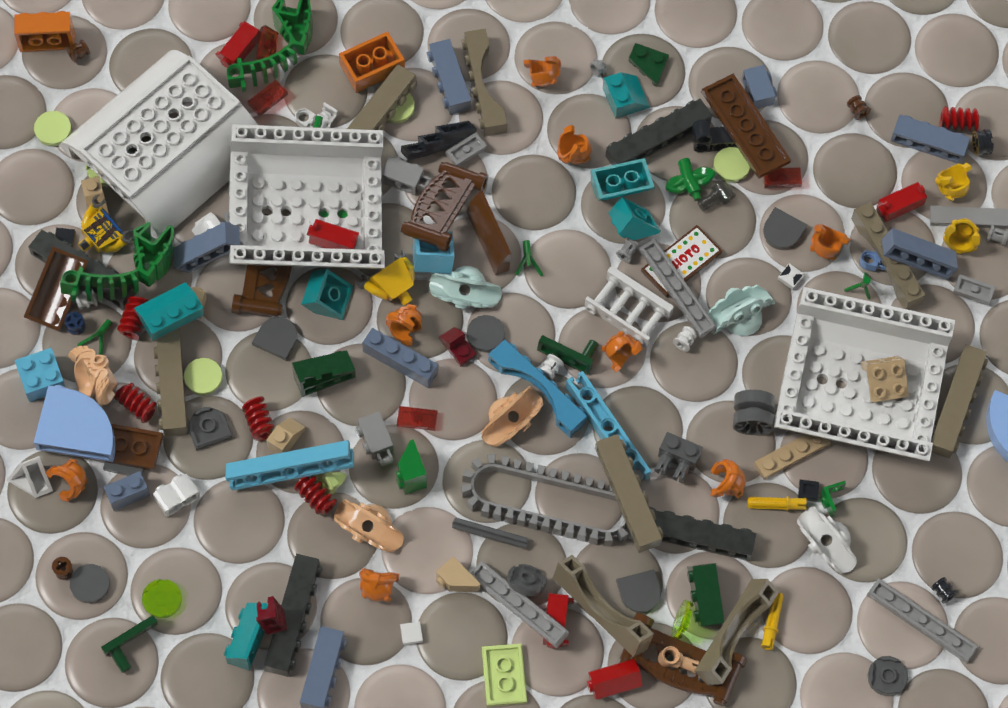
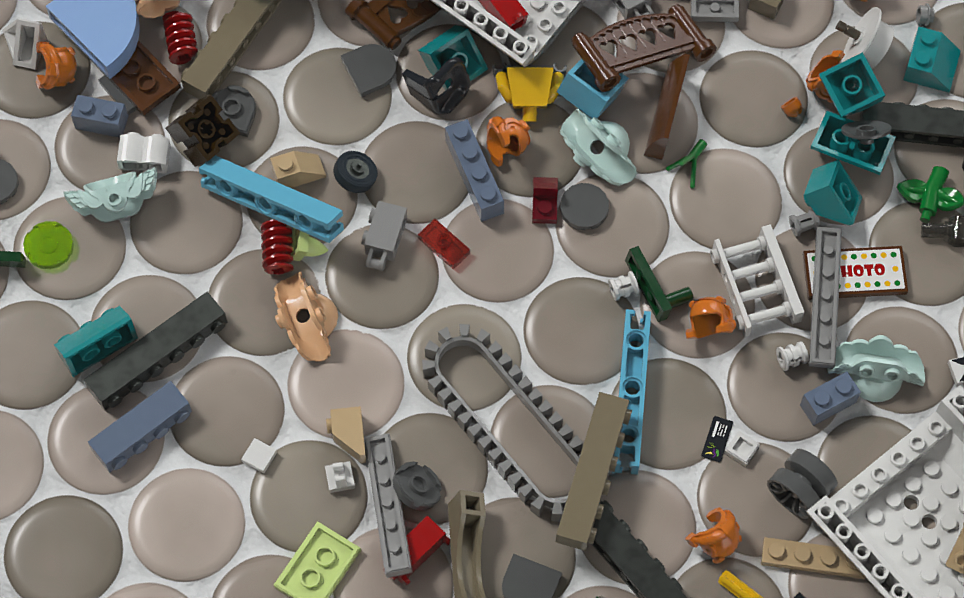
camera: 40 degrees right, 0 degrees up
(180, 535) = (114, 196): none -> light aqua piece
(203, 376) = (266, 57): yellowish green tile -> none
(207, 452) = (202, 130): none -> dark brown brick
(257, 418) = (283, 132): red piece -> none
(272, 618) = (124, 335): dark red hinge -> none
(323, 372) = (383, 130): dark green wedge -> none
(325, 411) = (355, 171): none -> black wheel
(333, 327) = (427, 89): none -> black piece
(377, 585) = (260, 381): orange helmet -> none
(411, 471) = (389, 288): green slope -> none
(472, 610) = (340, 477): none -> white tile
(490, 533) = (422, 412): dark grey axle -> none
(500, 428) = (519, 312): light nougat piece -> none
(510, 362) = (584, 252): dark azure arch -> none
(563, 181) = (792, 107): none -> orange hinge
(579, 107) = (869, 36): none -> white piece
(597, 143) = (852, 86): none -> teal slope
(627, 166) = (866, 130): none -> dark grey dish
(679, 421) = (717, 439): none -> black sticker
(680, 452) = (689, 469): dark grey brick -> none
(699, 417) = (742, 448): none -> white tile
(728, 349) = (830, 398): none -> sand blue brick

